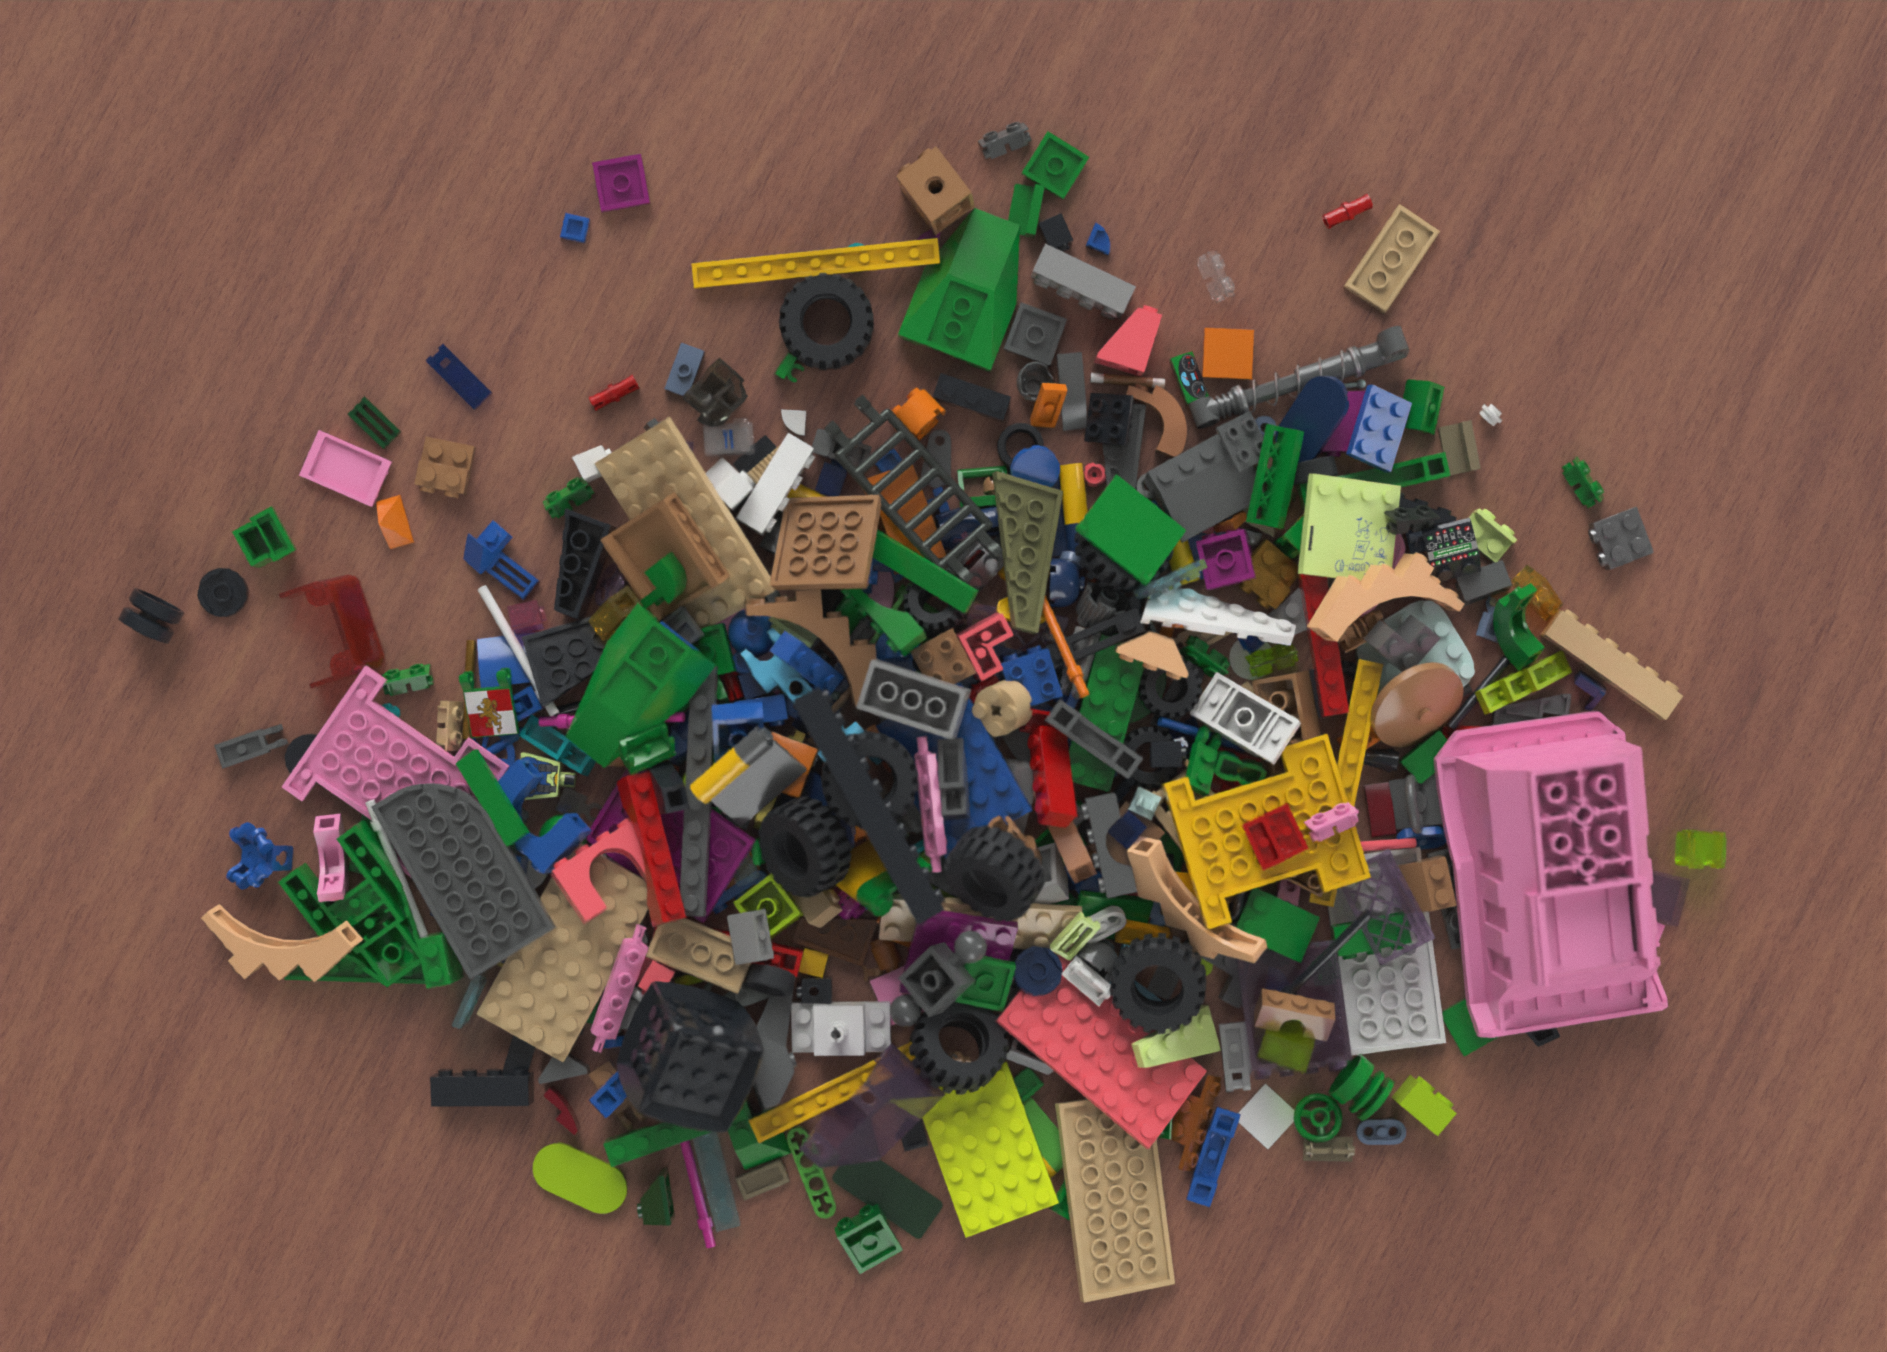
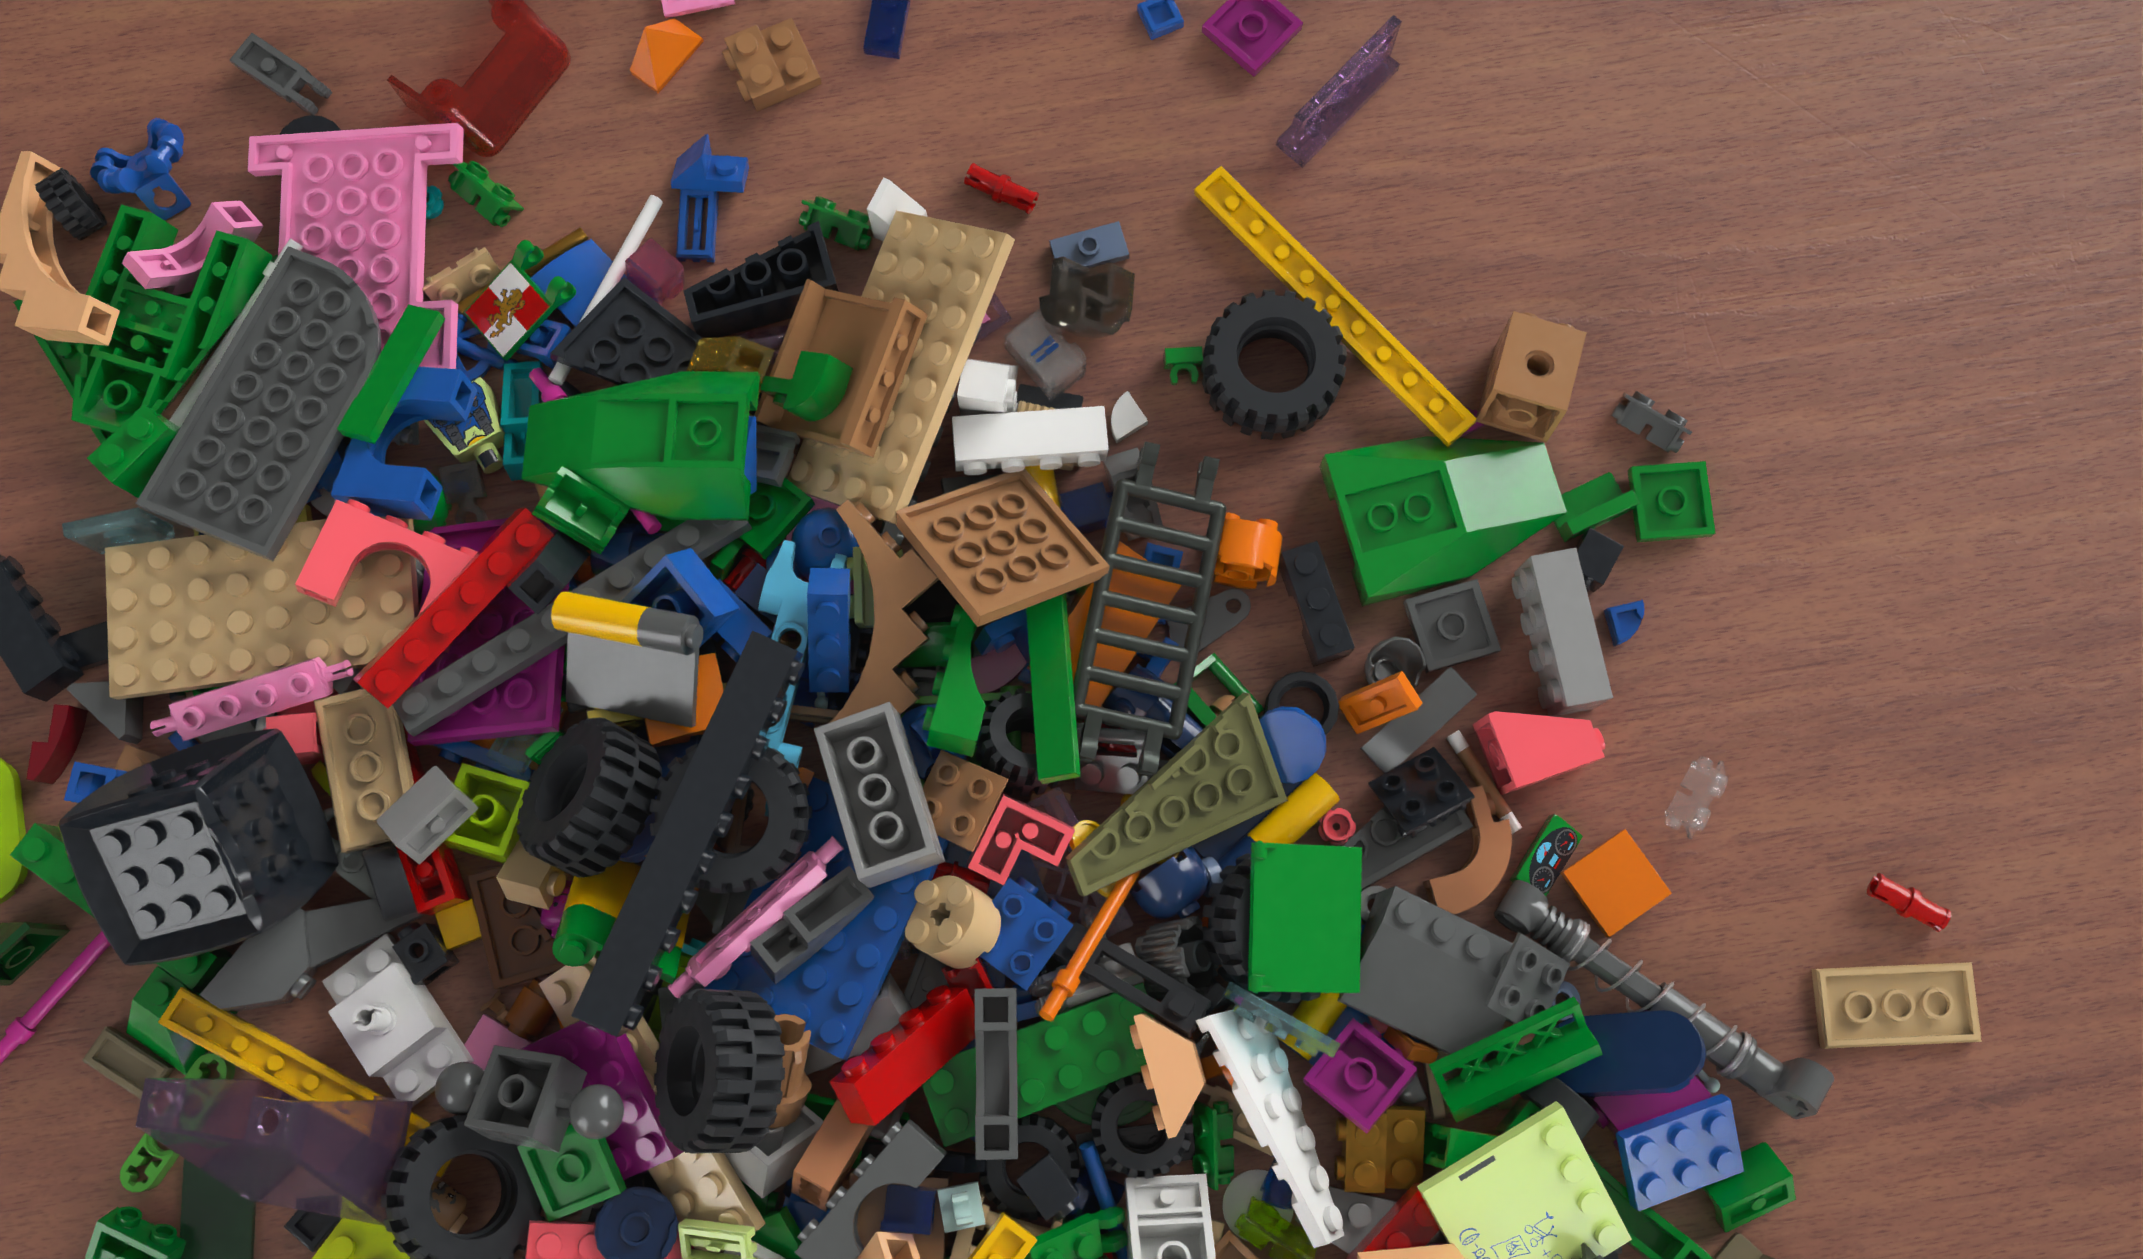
camera: 60 degrees right, 10 degrees down
(252, 910) = (71, 204): none -> black tyre
(700, 167) = (1342, 96): none -> clear purple fence
(716, 1181) = (78, 1014): clear light blue plate -> none

